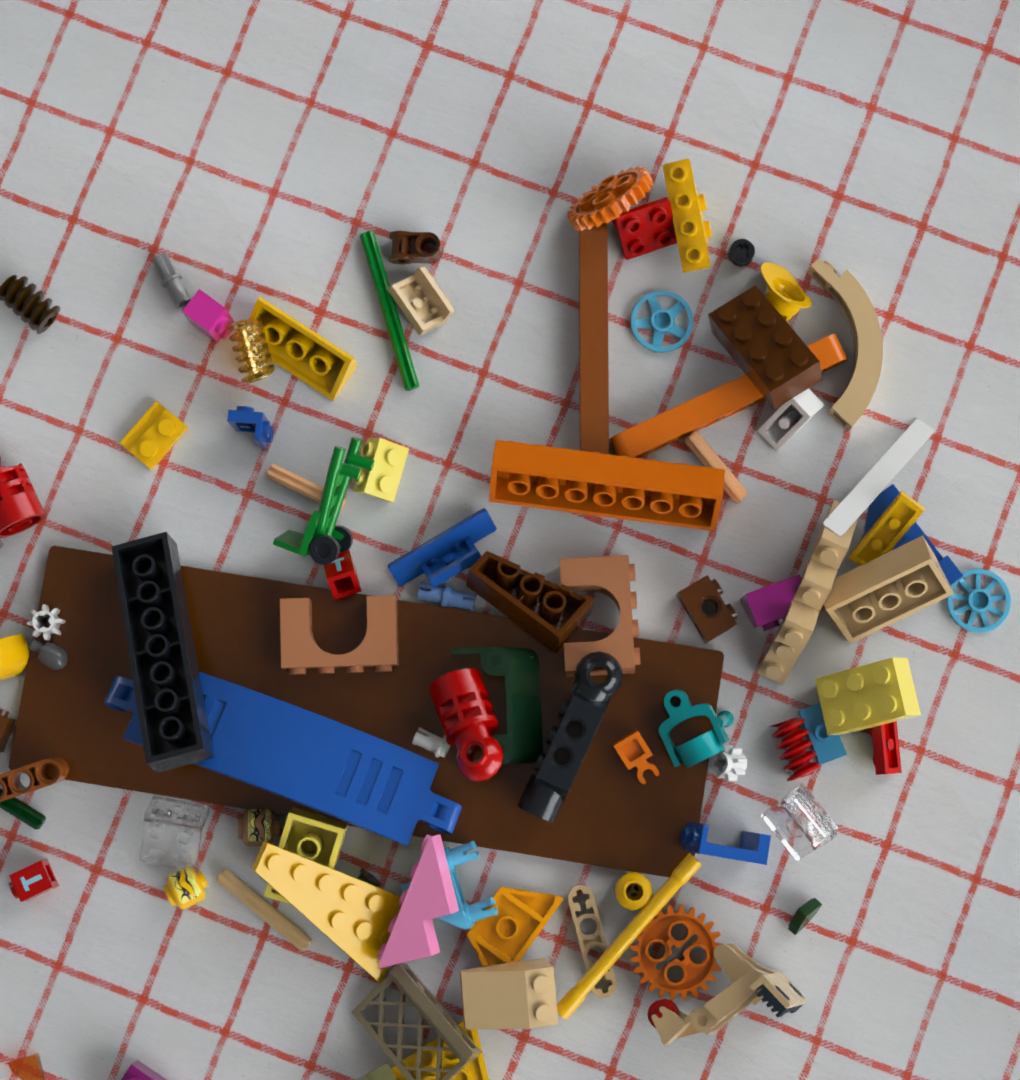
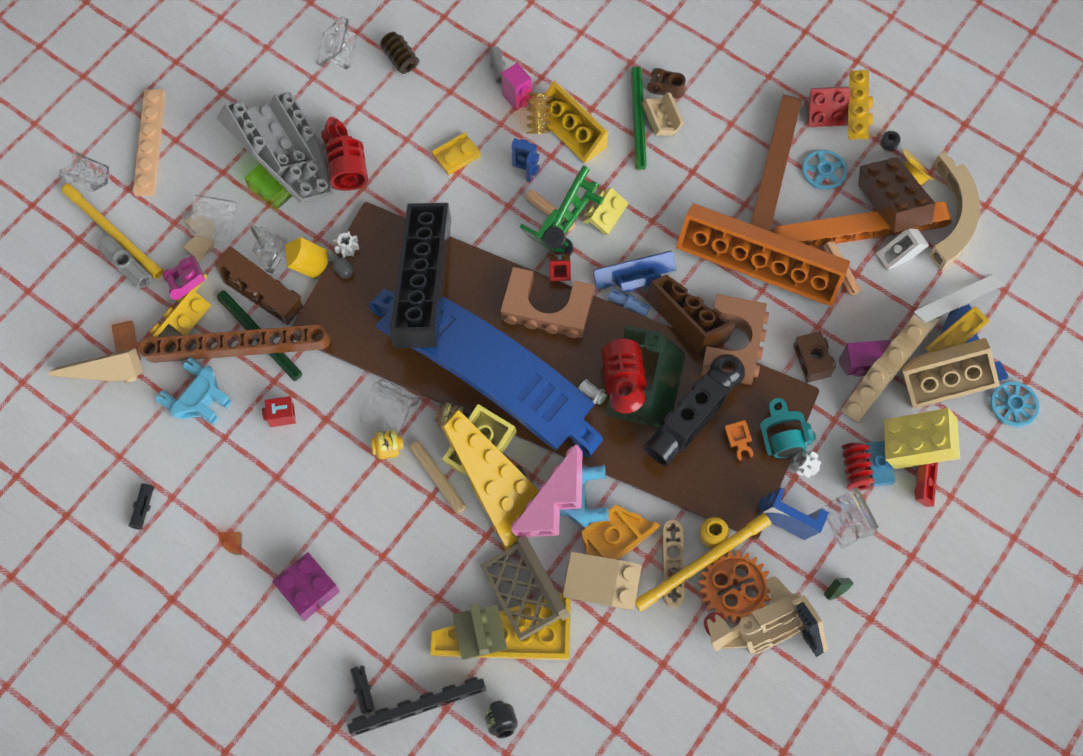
camera: 10 degrees right, 15 degrees down
(610, 198) = (809, 79): orange gear -> none

